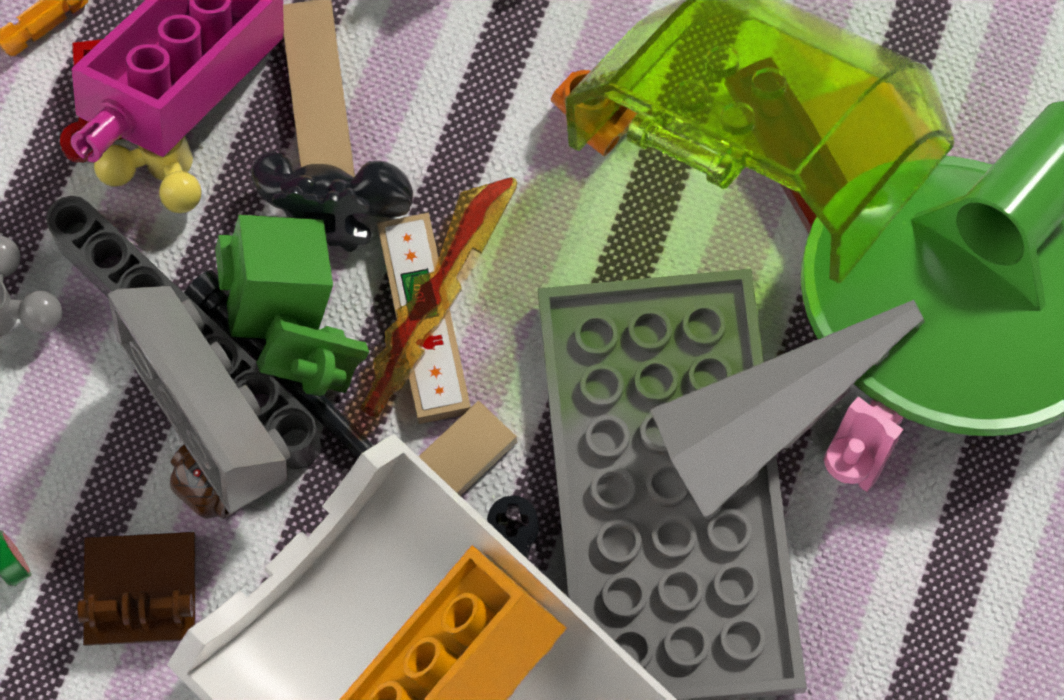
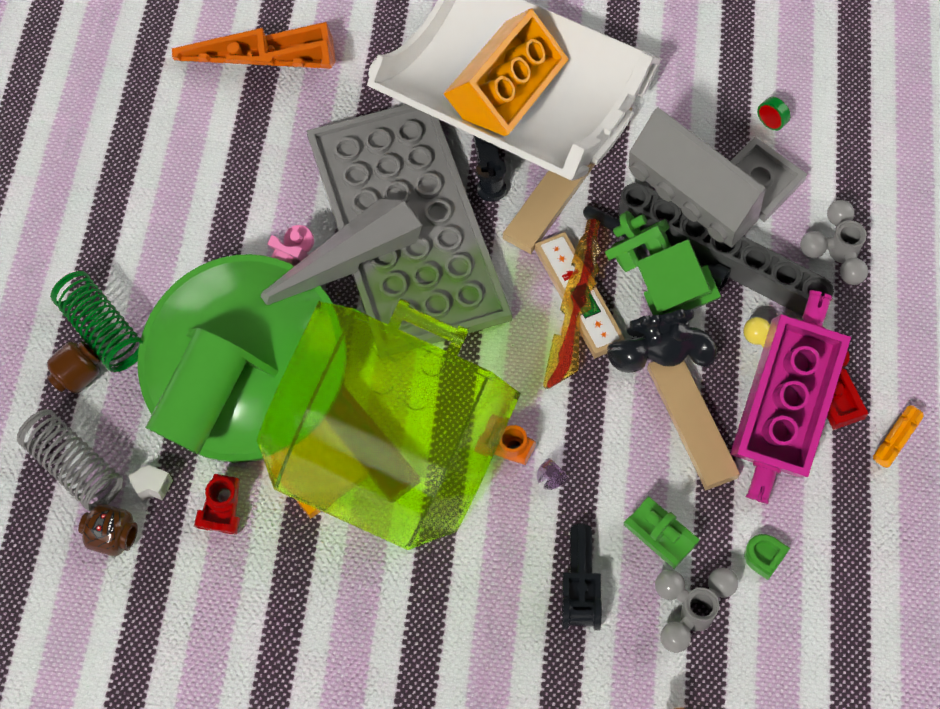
camera: 165 degrees right, 5 degrees down
(77, 445) = (772, 171): none -> light grey plate
(138, 588) = (699, 112): reddish brown hinge -> none
(539, 56) = (553, 473): none -> clear purple hinge
(1013, 99) = (216, 514): none -> red plate

